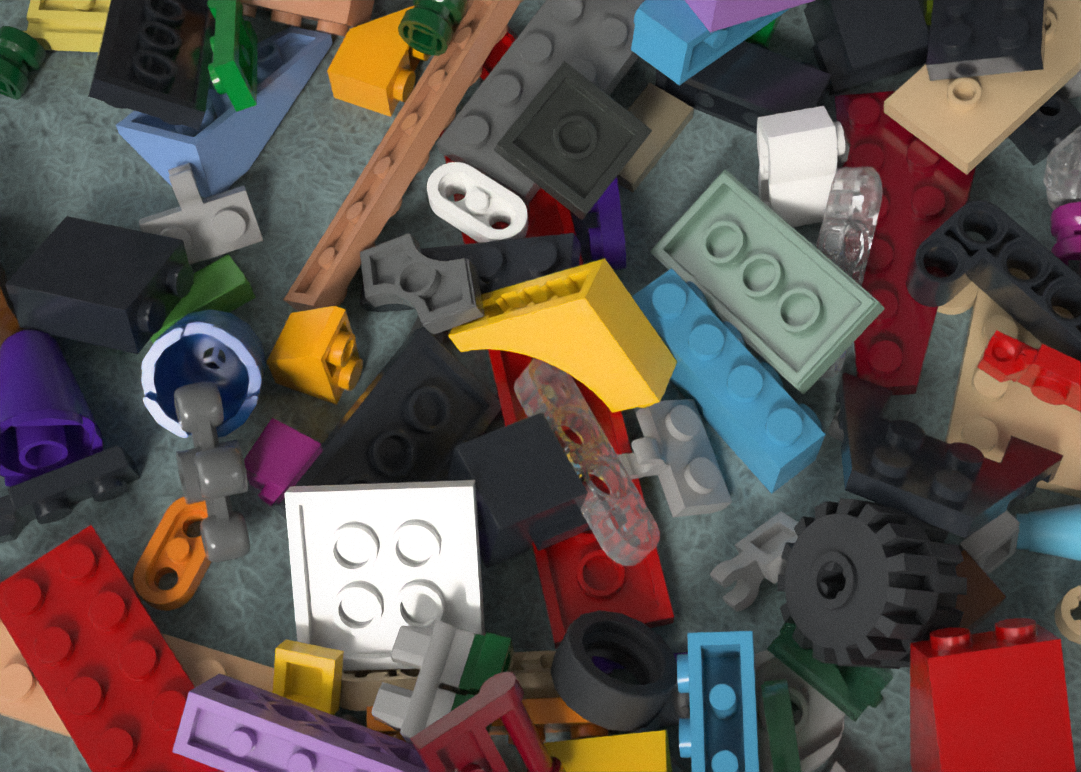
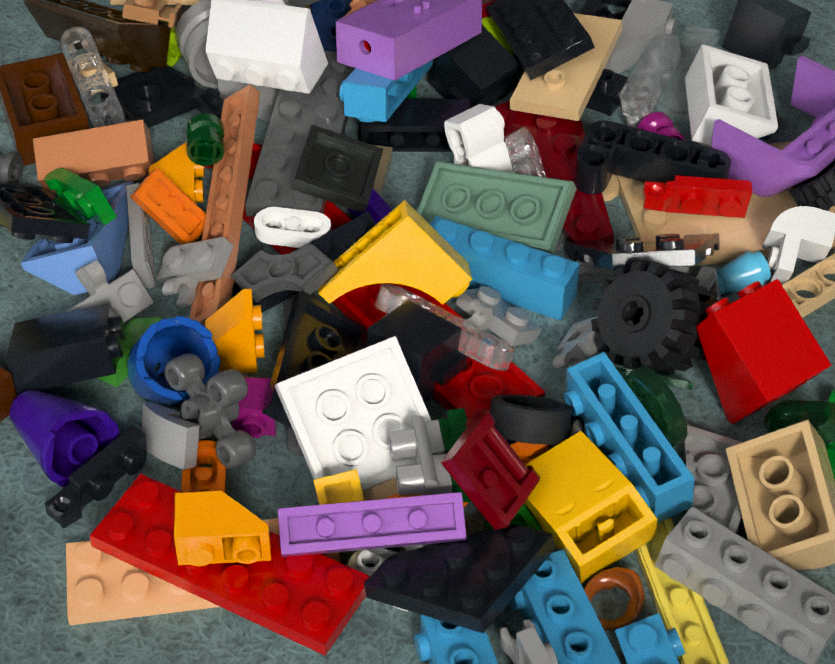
camera: 30 degrees left, 20 degrees down
(108, 675) = (217, 530): none -> light orange slope
(155, 481) = (169, 436): none -> light grey slope
(292, 132) = (140, 240): none -> light grey tile
(326, 210) = (190, 264): none -> light grey plate
(343, 106) = (170, 207): none -> orange plate

